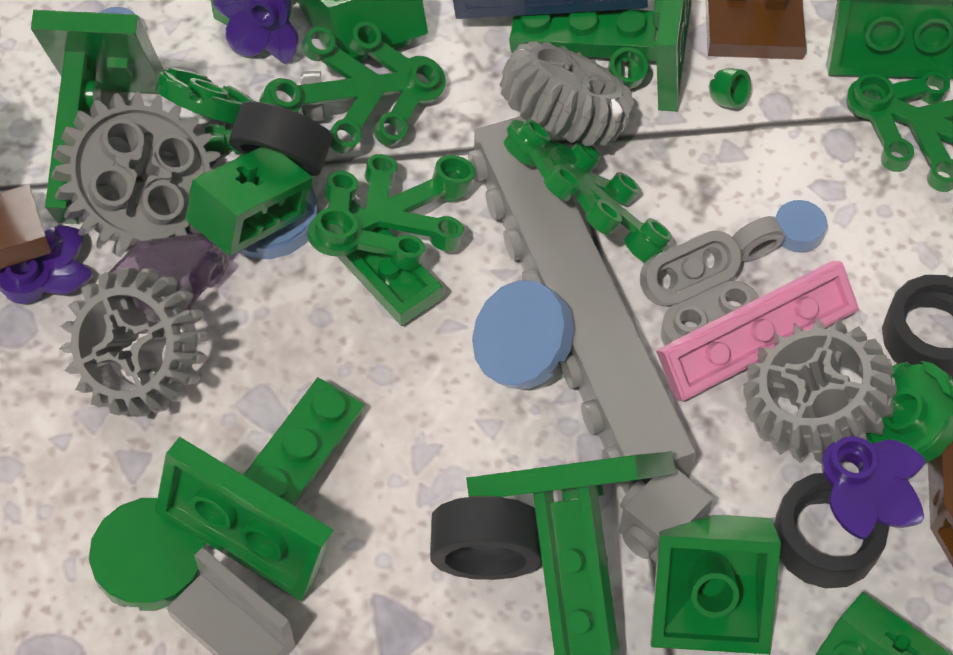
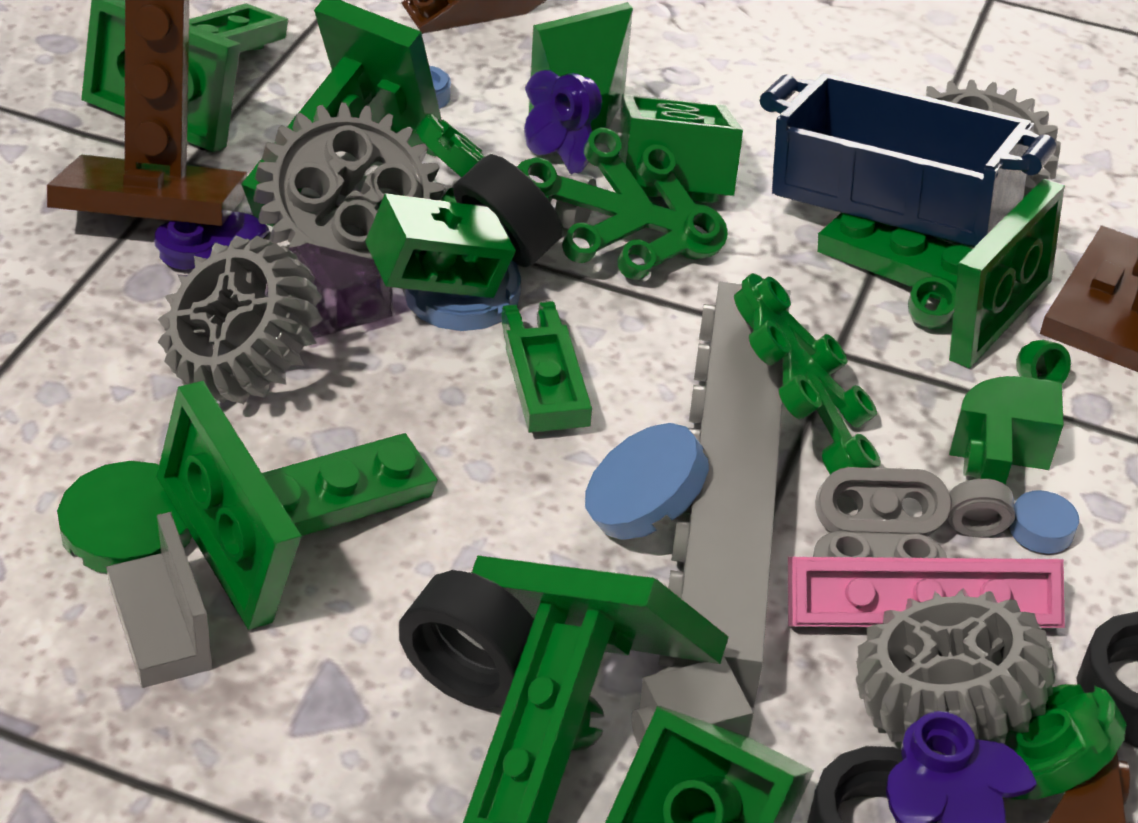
camera: 25 degrees right, 15 degrees down
(341, 233) = (512, 307): green plant -> none
(566, 93) = (841, 287): light grey gear -> none
(737, 159) = (1007, 425): none -> green brick

